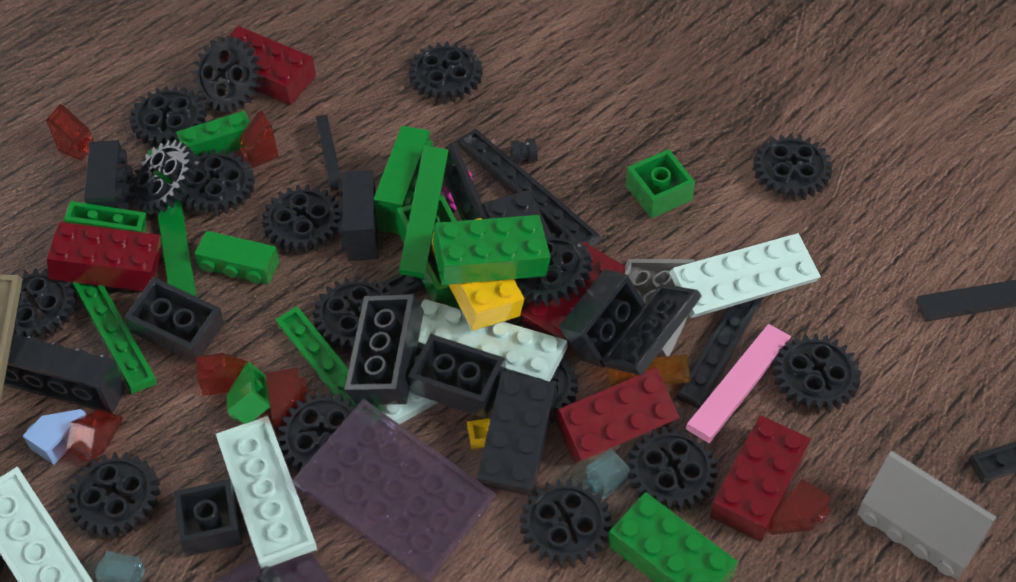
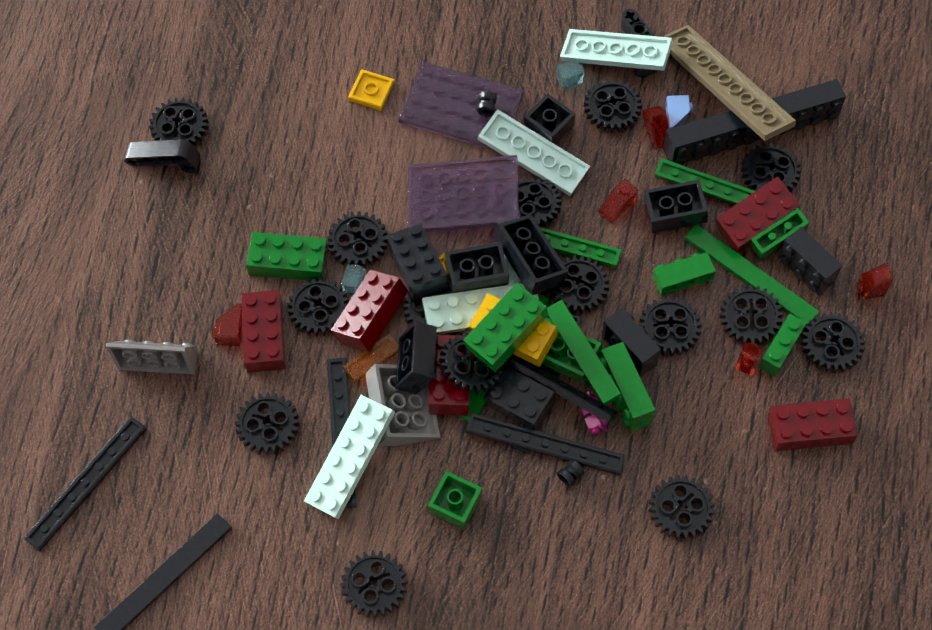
camera: 145 degrees right, 10 degrees up
(151, 192) = (778, 285): black gear -> none
(227, 74) = (821, 388): black gear -> none
(248, 395) = (592, 196): green slope -> none
(284, 390) = (574, 211): clear red slope -> none
(328, 151) = (701, 386): black beam -> none
(651, 329) = (380, 365): black tile -> none
(737, 384) = (311, 386): bright pink tile -> none

